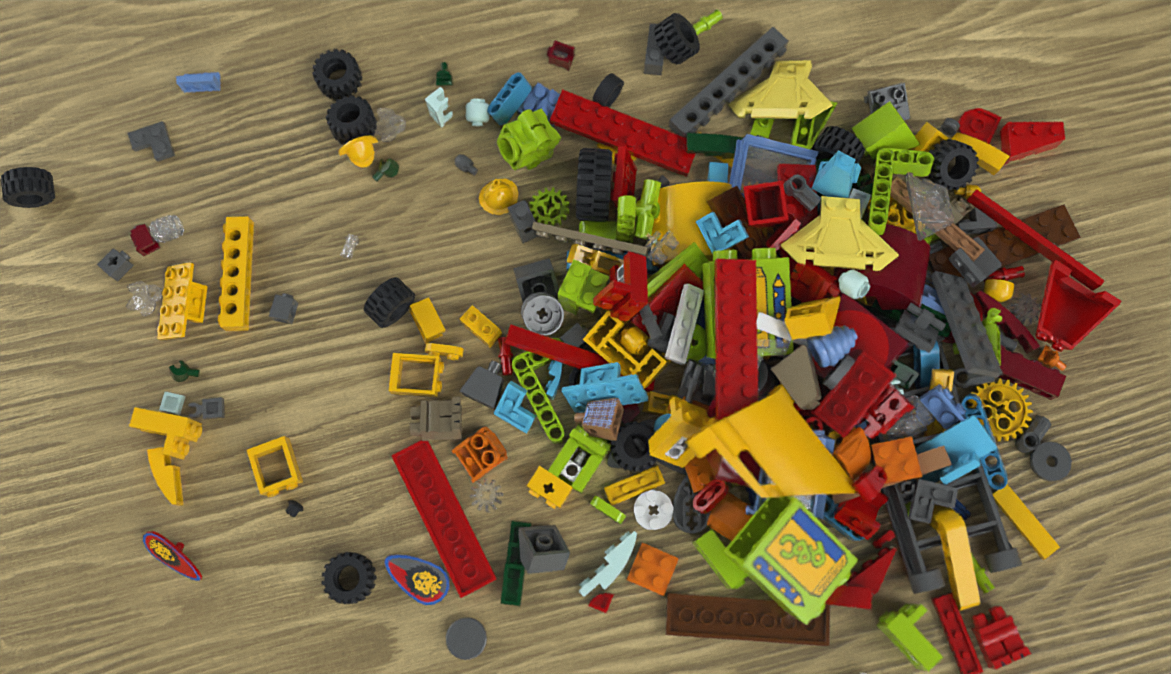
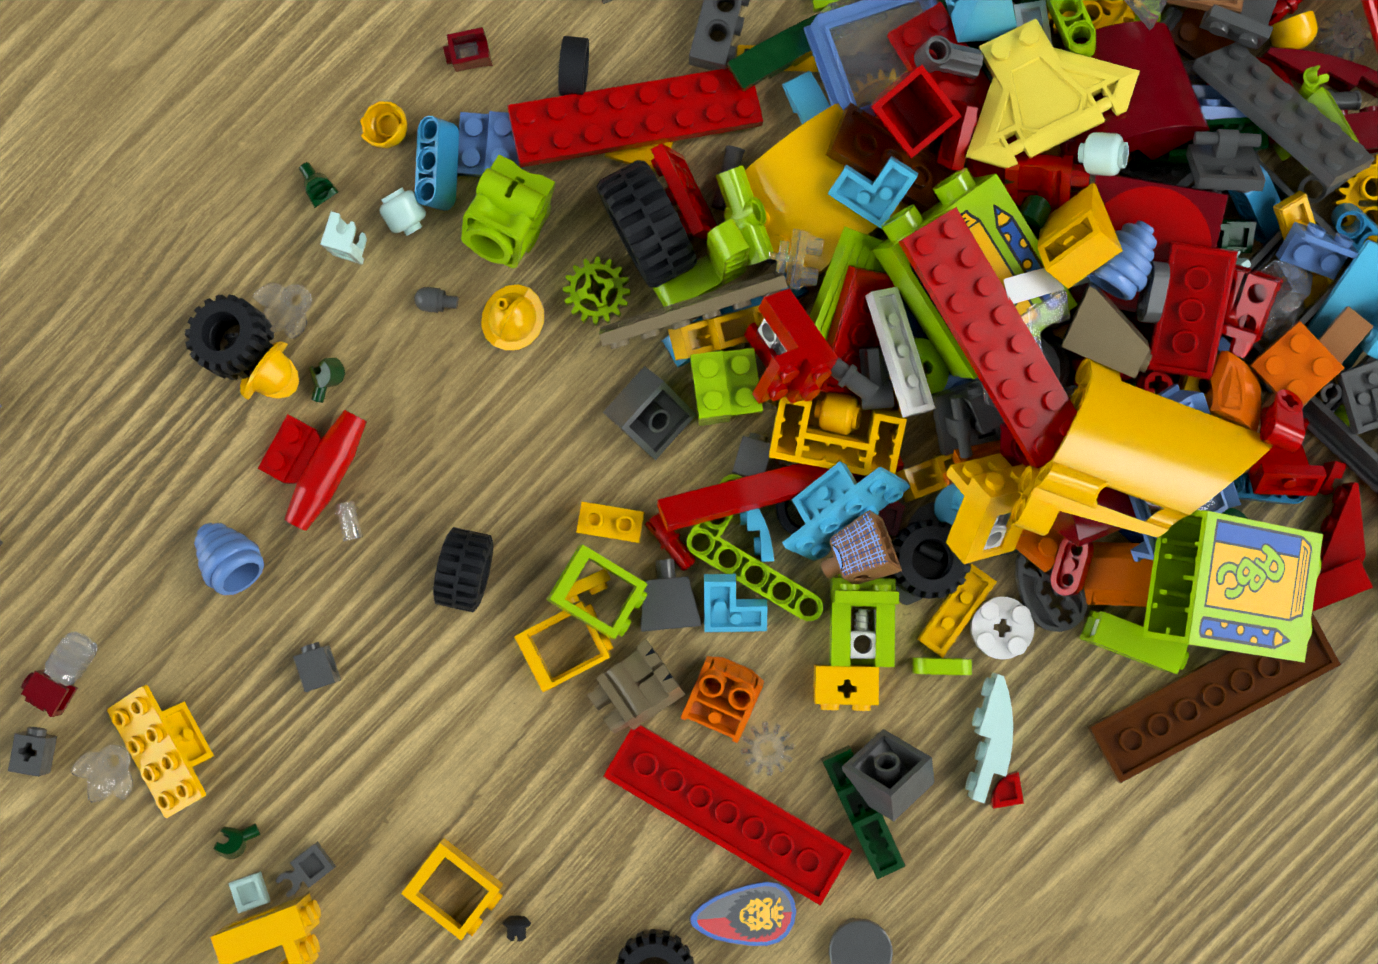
camera: 30 degrees left, 10 degrees up
(240, 318) = (231, 664): yellow brick -> none
(276, 227) = (227, 559): none -> medium blue piece
(337, 61) = (140, 264): black tyre -> none
(351, 207) = (312, 463): none -> red plate
(427, 320) = (528, 559): yellow hinge -> none
(440, 337) = (571, 573): none -> lime window
(496, 66) = (384, 125): none -> yellow hair
(522, 219) = (573, 334): dark grey torso -> none
(548, 322) = (700, 461): light grey wheel -> none
(652, 569) = (1048, 706): orange plate -> none
(799, 294) = (1035, 210): none -> dark green piece

